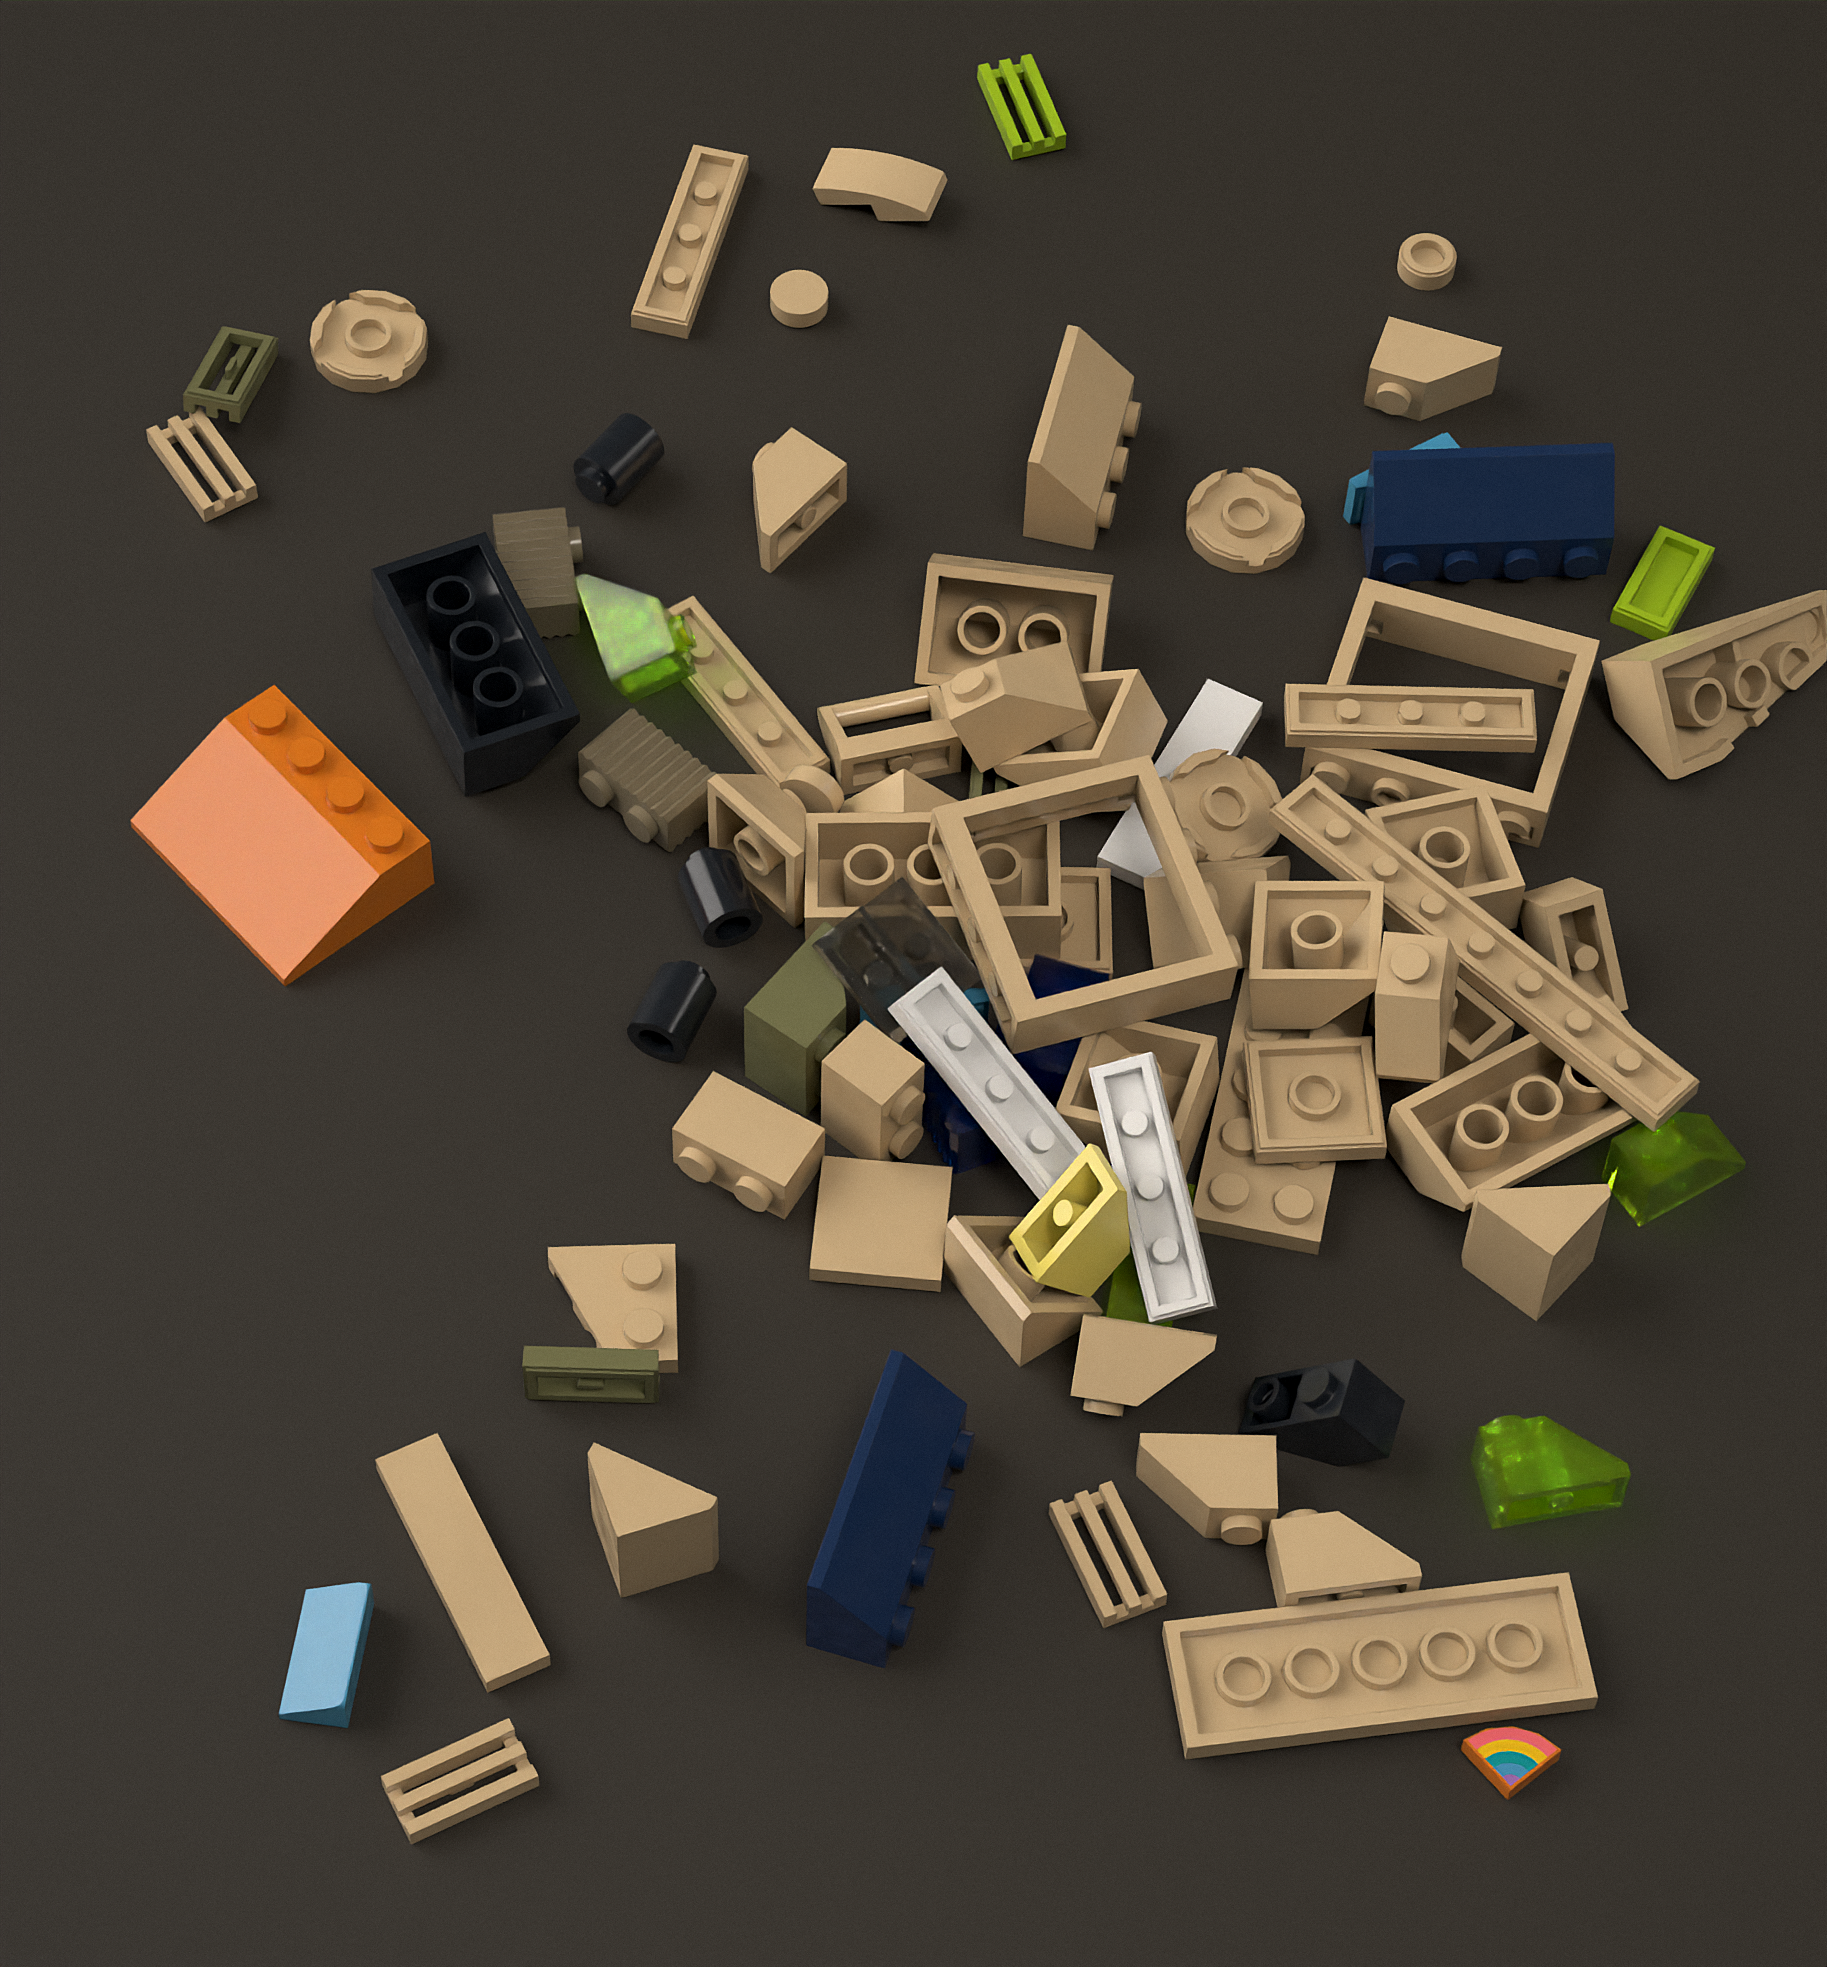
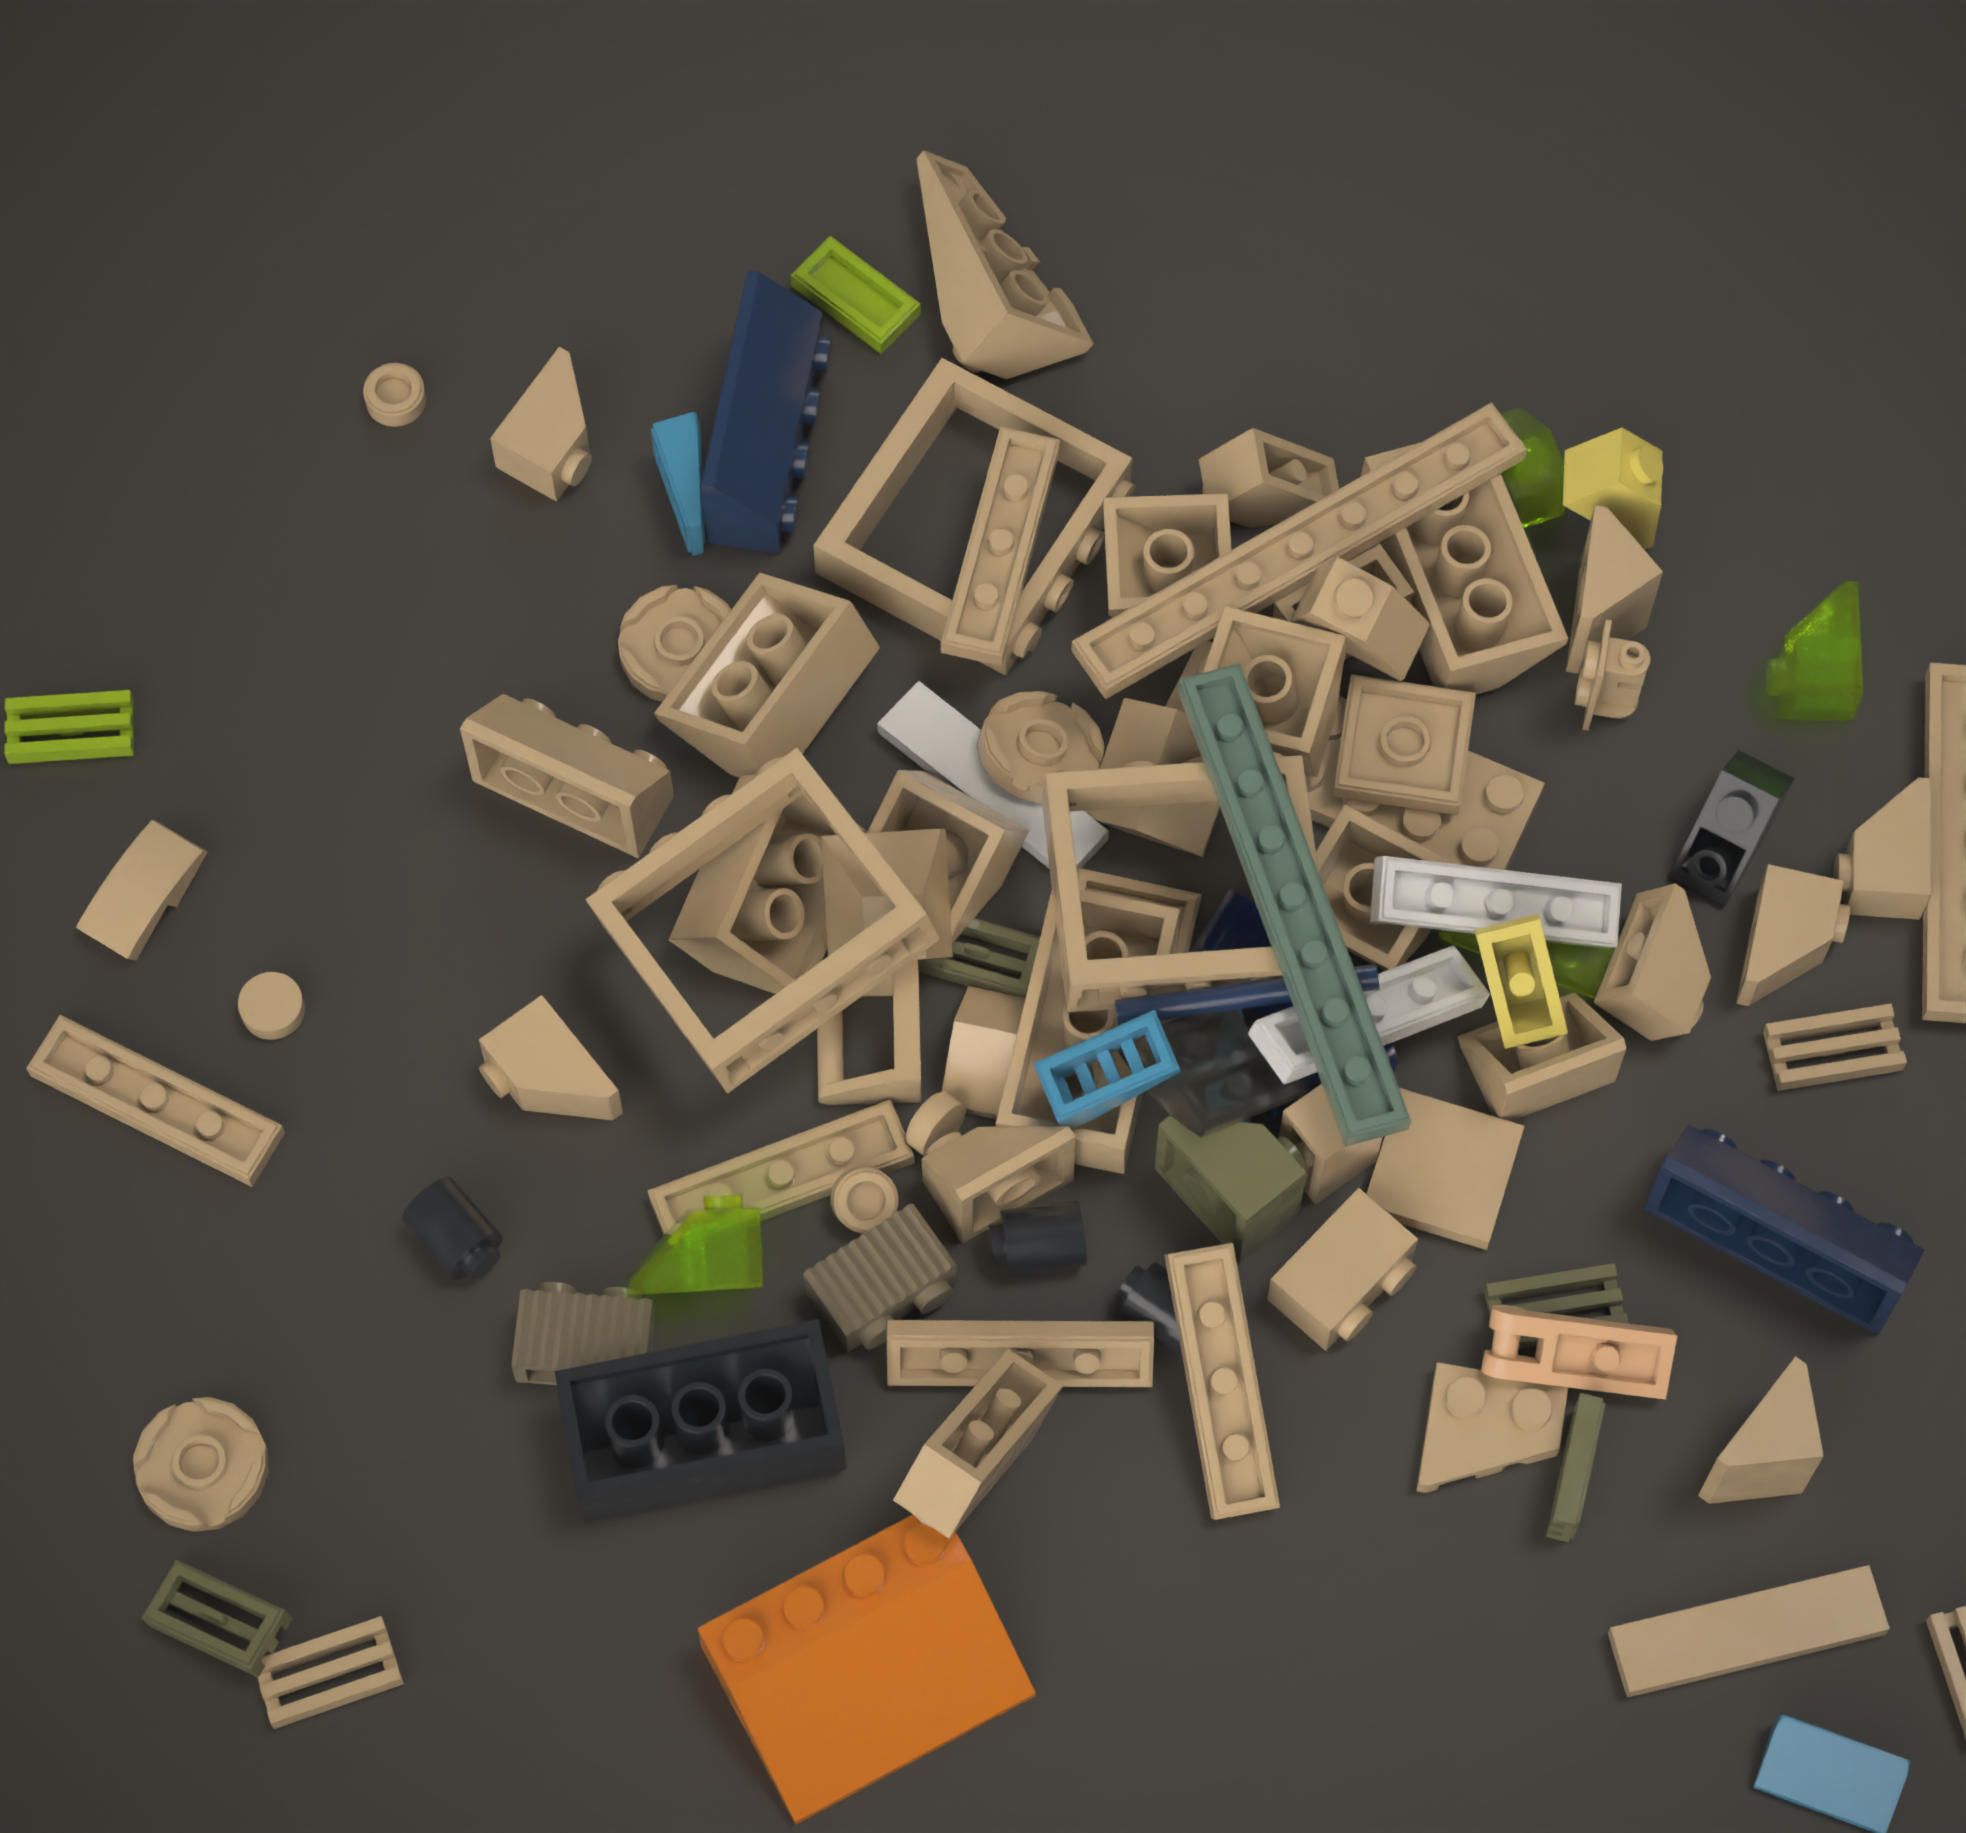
camera: 75 degrees left, 10 degrees up
(487, 853) = (977, 1443): none -> tan brick
(601, 901) = (1064, 1350): none -> tan tile
(604, 1053) = (1222, 1381): none -> tan tile
(709, 1358) = (1581, 1353): none -> light nougat plate
(727, 750) = (863, 1198): none -> tan tile
(742, 1299) = (1561, 1282): none -> olive tile
(853, 833) = (1076, 1059): none -> dark azure slope
(903, 643) = (819, 991): none -> tan window
(976, 970) = (1223, 998): none -> dark blue bar
(1068, 973) = (1293, 906): none -> sand green tile
(1218, 581) = (769, 675): none -> tan slope
(1440, 1258) = (1611, 677): none -> tan hinge
(1660, 1237) = (1620, 475): none -> light yellow slope

